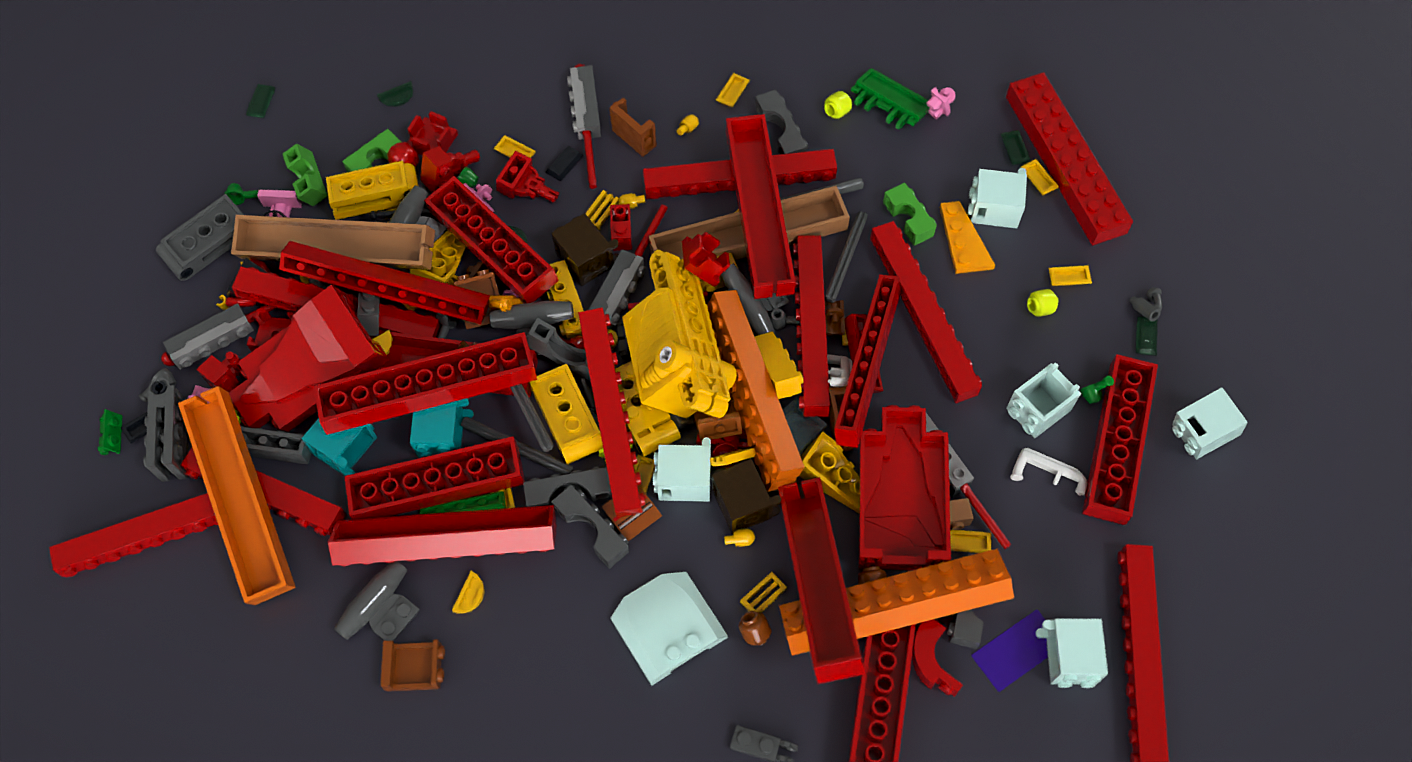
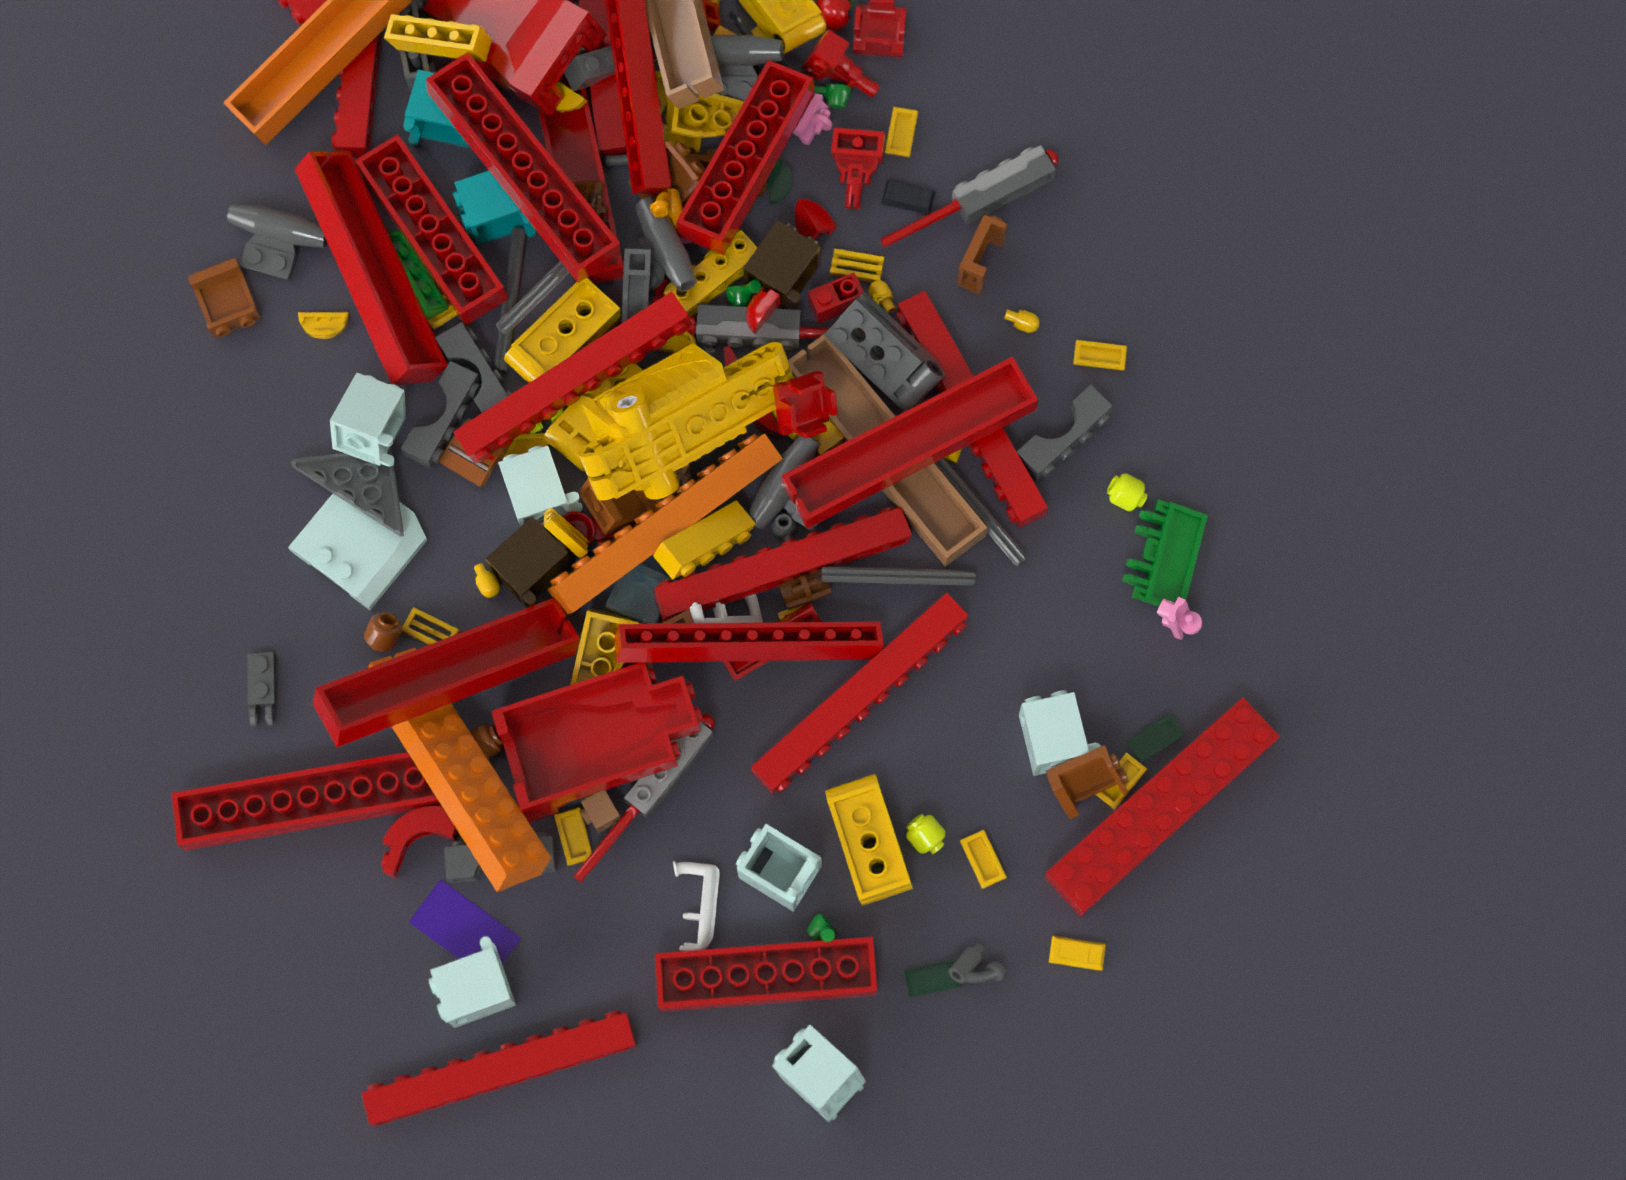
camera: 70 degrees right, 10 degrees up
(285, 410) = (438, 37): none -> yellow brick
(550, 222) = (812, 219): none -> red brick
(575, 576) = (368, 420): none -> light aqua container
(590, 288) = (740, 295): none -> green bar
(610, 270) = (761, 308): none -> red brick
(619, 603) = (359, 483): none -> dark grey tile
(695, 198) = (904, 368): none -> dark grey hinge
(903, 201) = (981, 652): bright green arch -> none
(965, 245) = (982, 715): light orange wing -> none
(1017, 338) = (862, 816): none -> yellow hinge
(1037, 198) = (1086, 777): none -> dark orange panel
(1152, 243) = (1077, 953): none -> yellow tile

